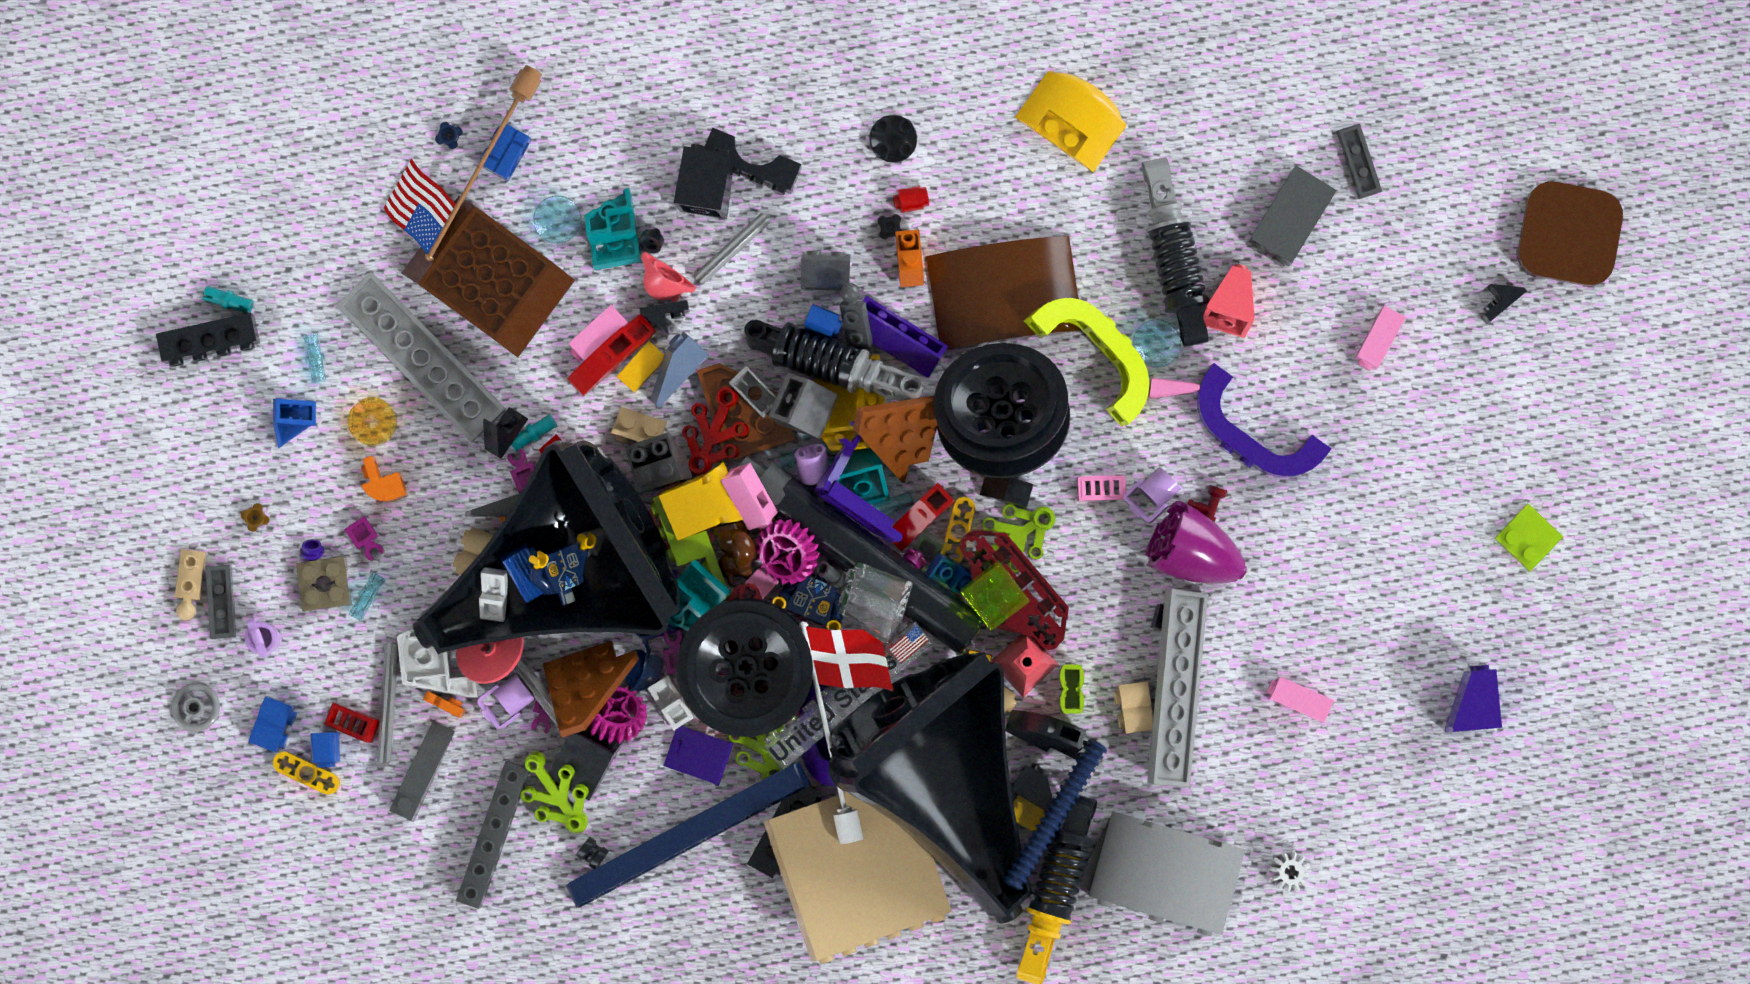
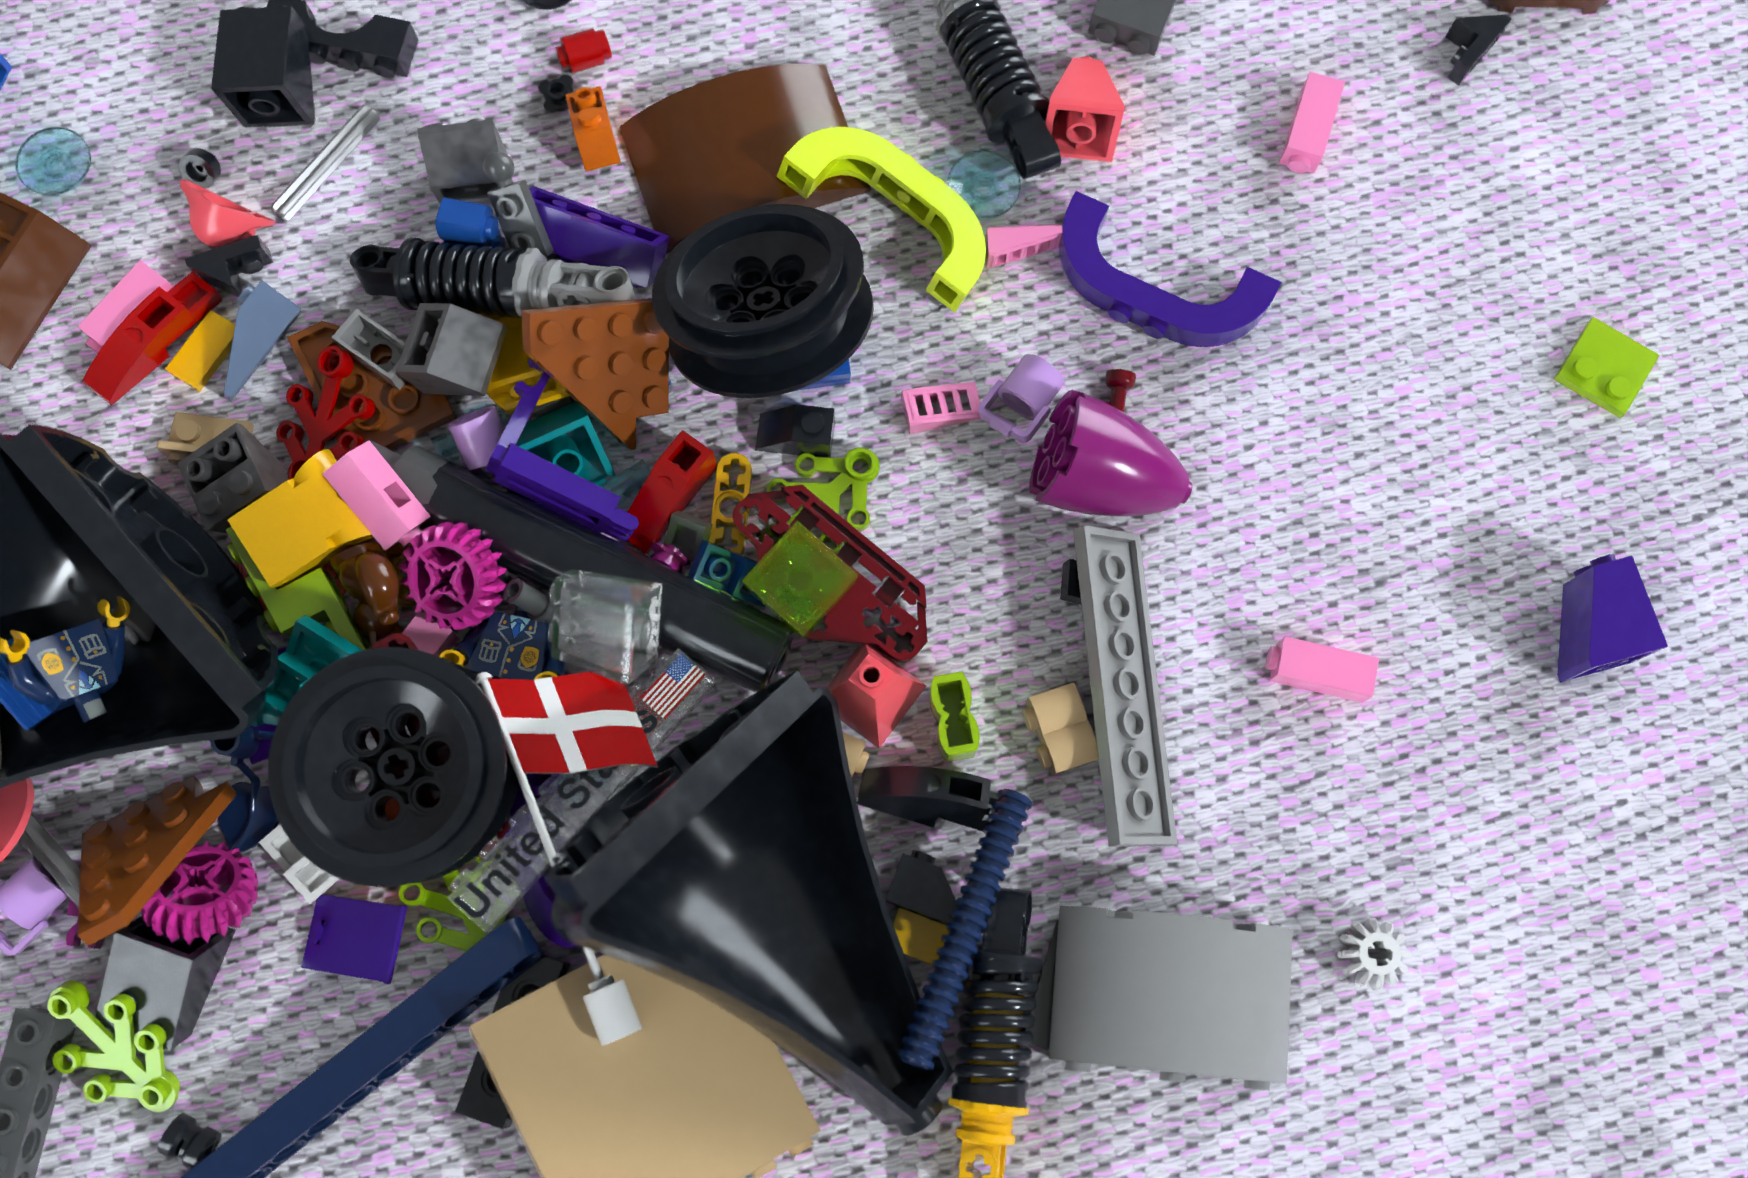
camera: 10 degrees left, 10 degrees down
(616, 230) = (142, 162): teal slope -> none

